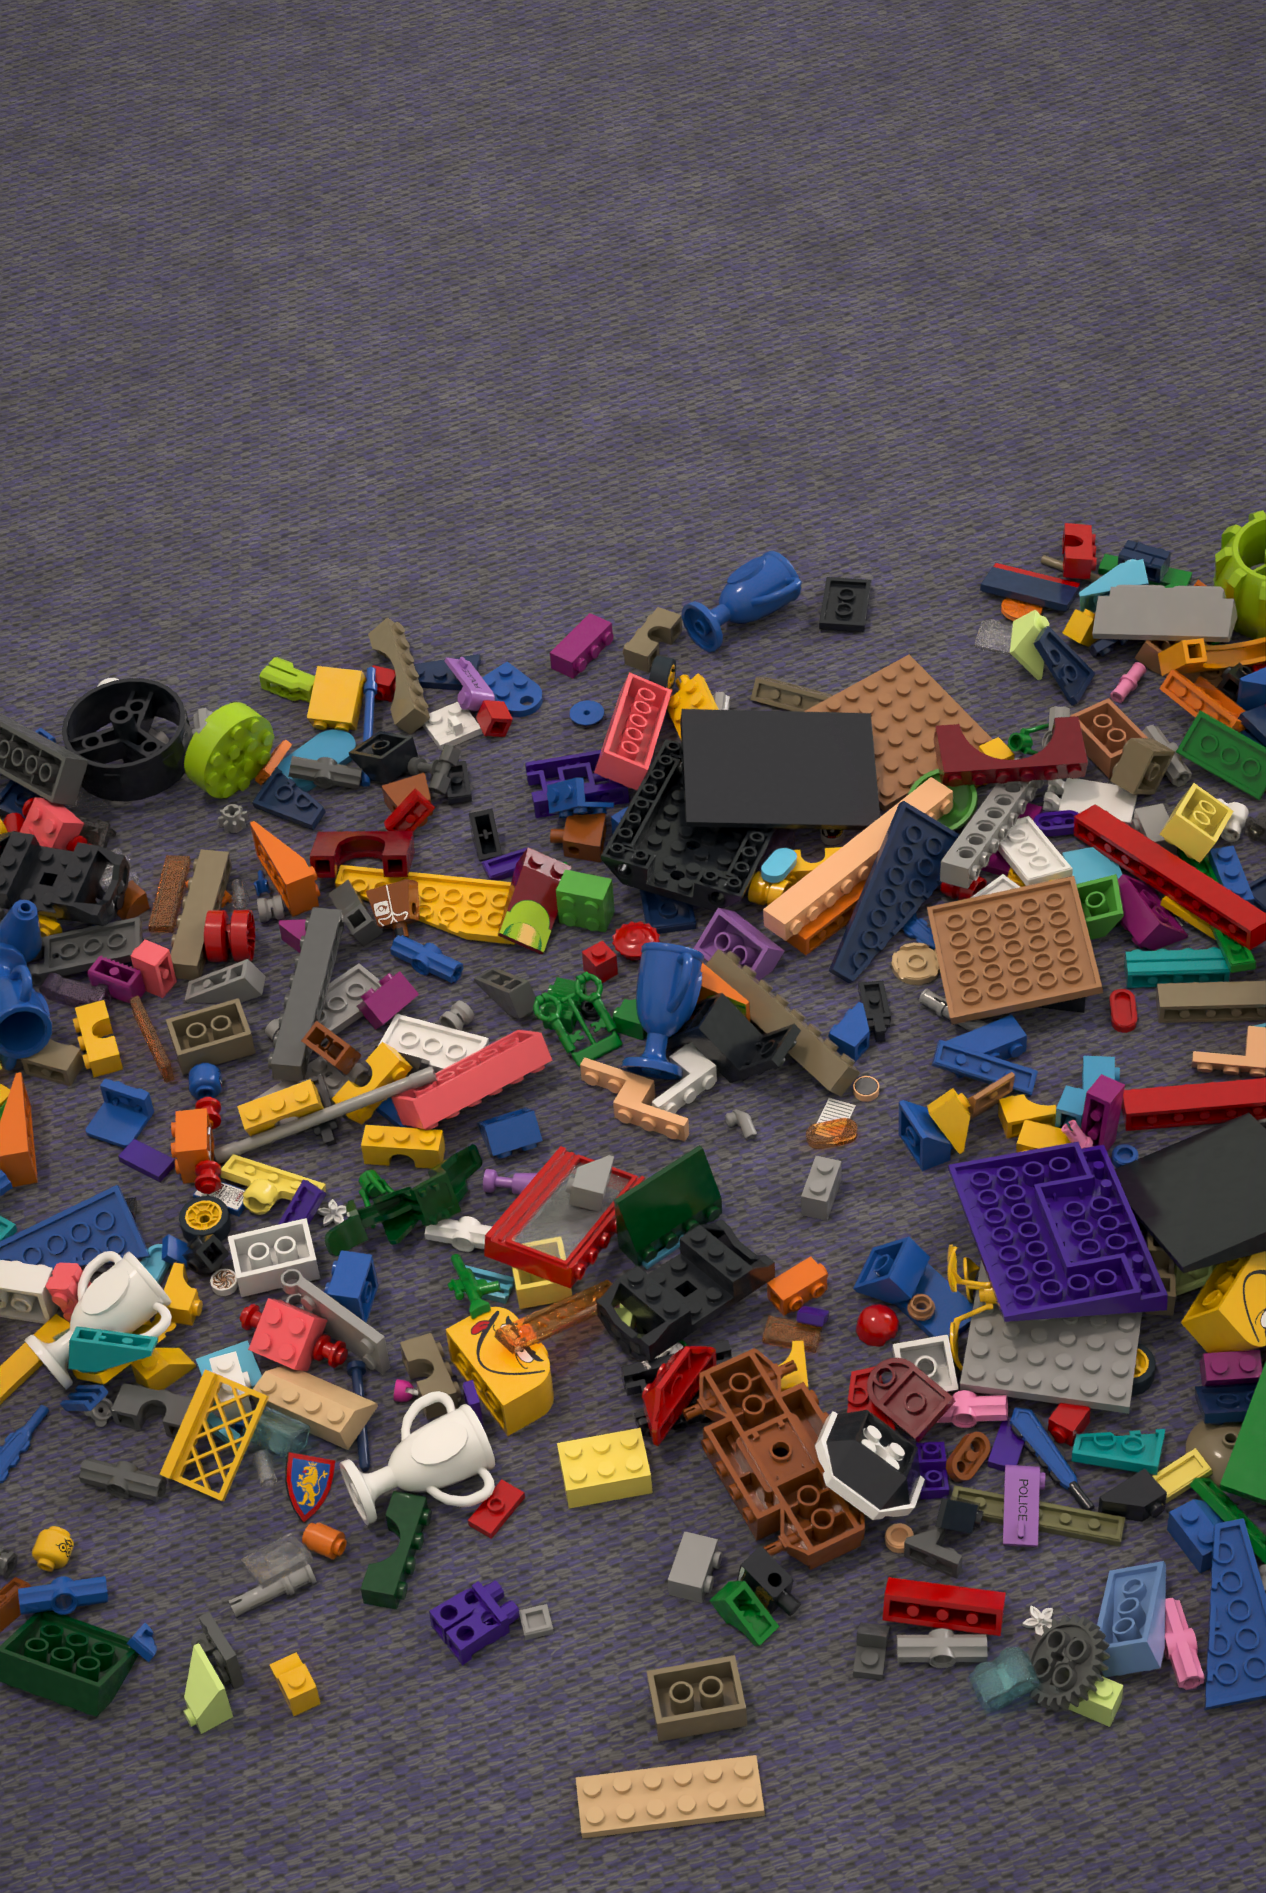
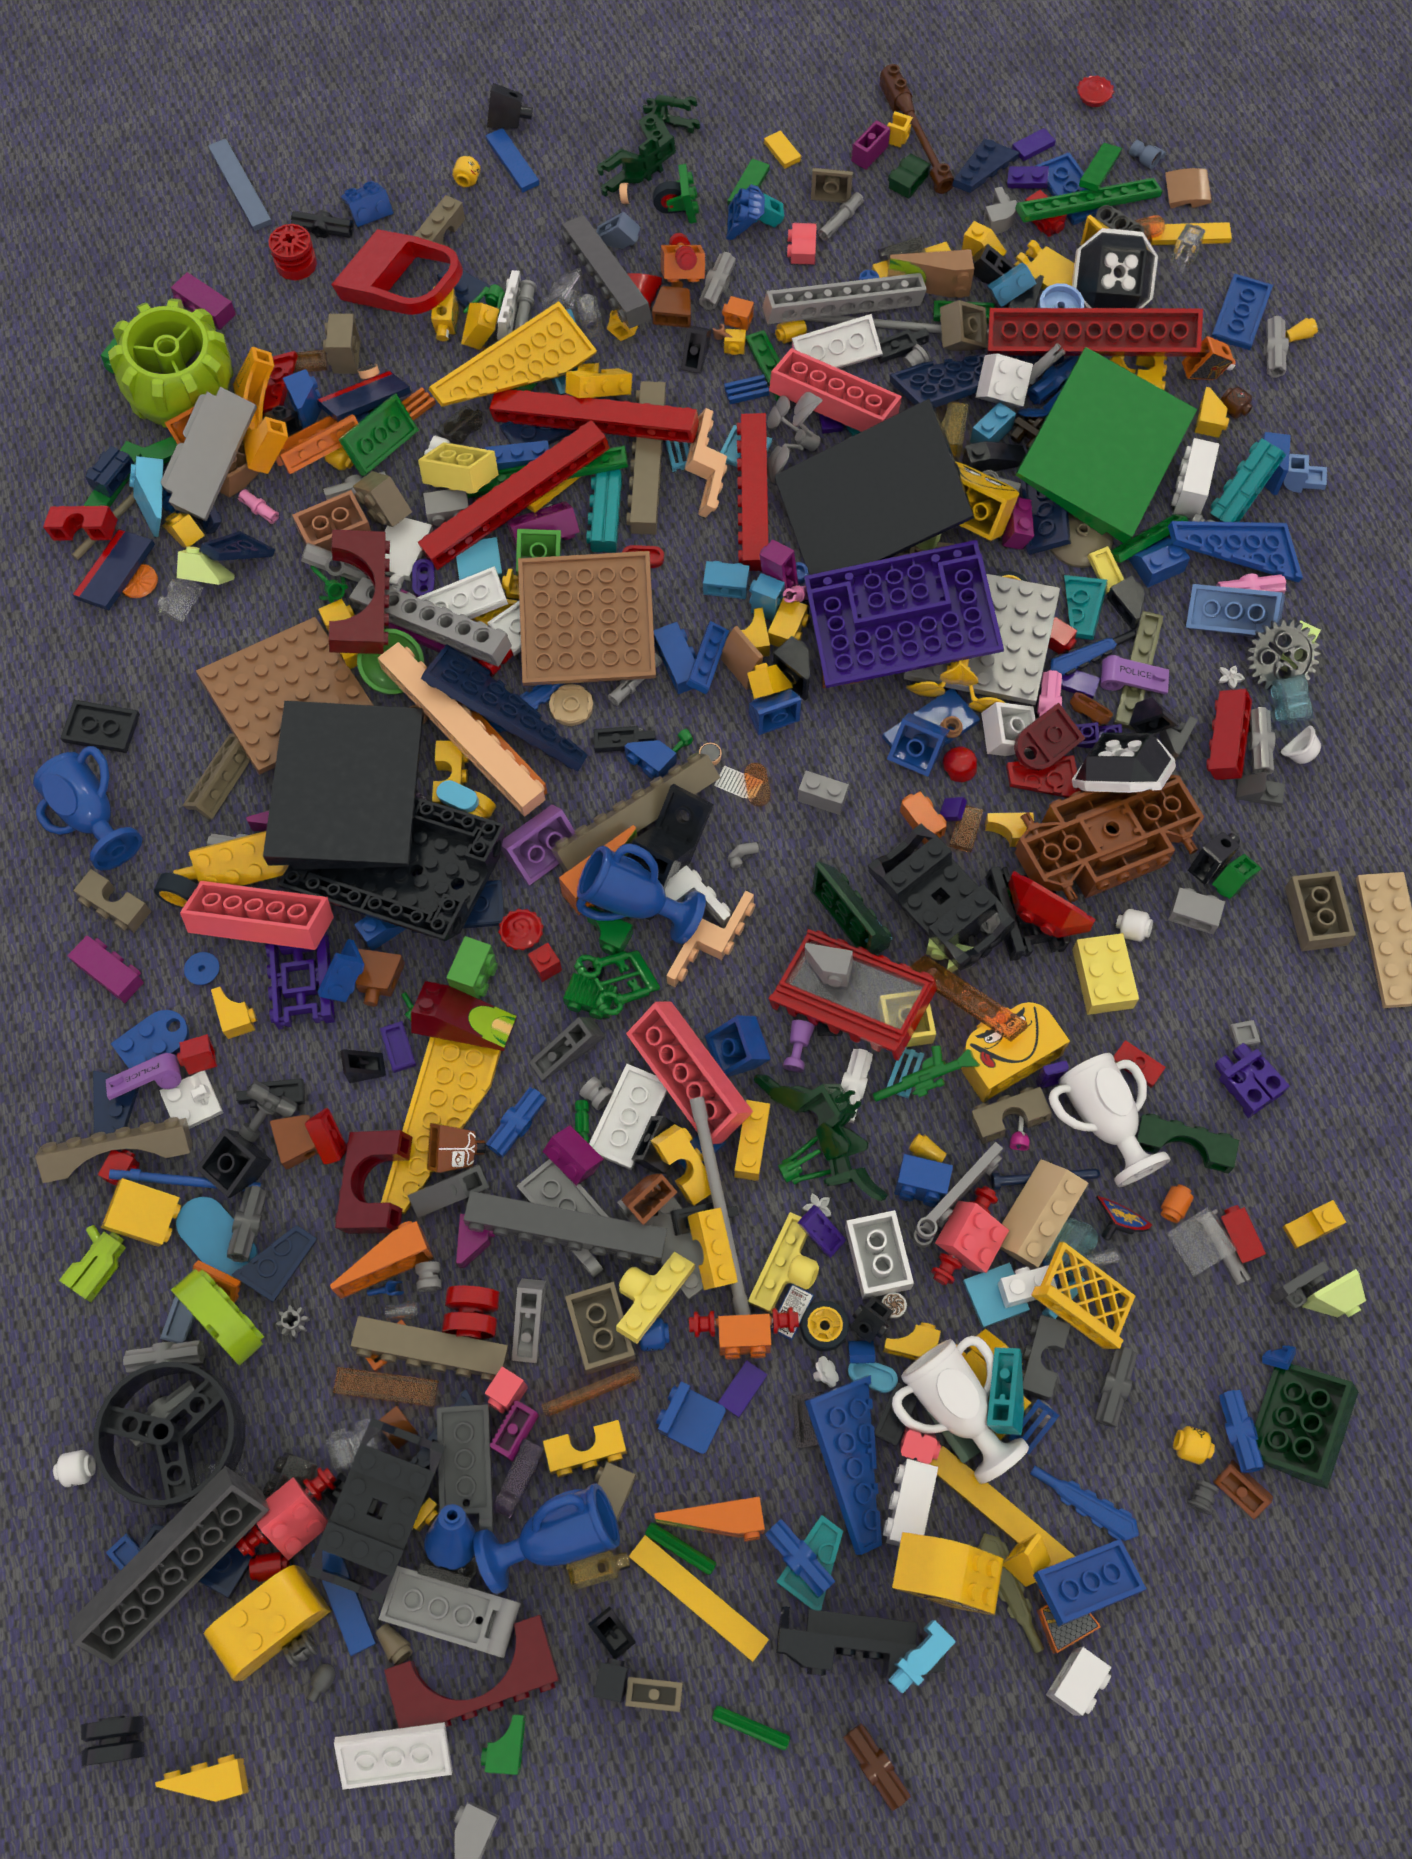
camera: 90 degrees left, 20 degrees up
(161, 1228) = (826, 1372): none -> white plant
(236, 1065) = (650, 1294): none -> light yellow plate
(283, 1601) = (1243, 1234): none -> red brick
(393, 1302) = (925, 1148): none -> yellow cone
(426, 1012) = (582, 1119): none -> green axle
(537, 736) = (233, 1016): none -> yellow arch
(670, 1500) = (1135, 925): none -> white head
(882, 1065) = (686, 739): none -> green hand
(933, 1694) = (1303, 747): none -> white helmet
(980, 1140) = (793, 661): none -> black slope

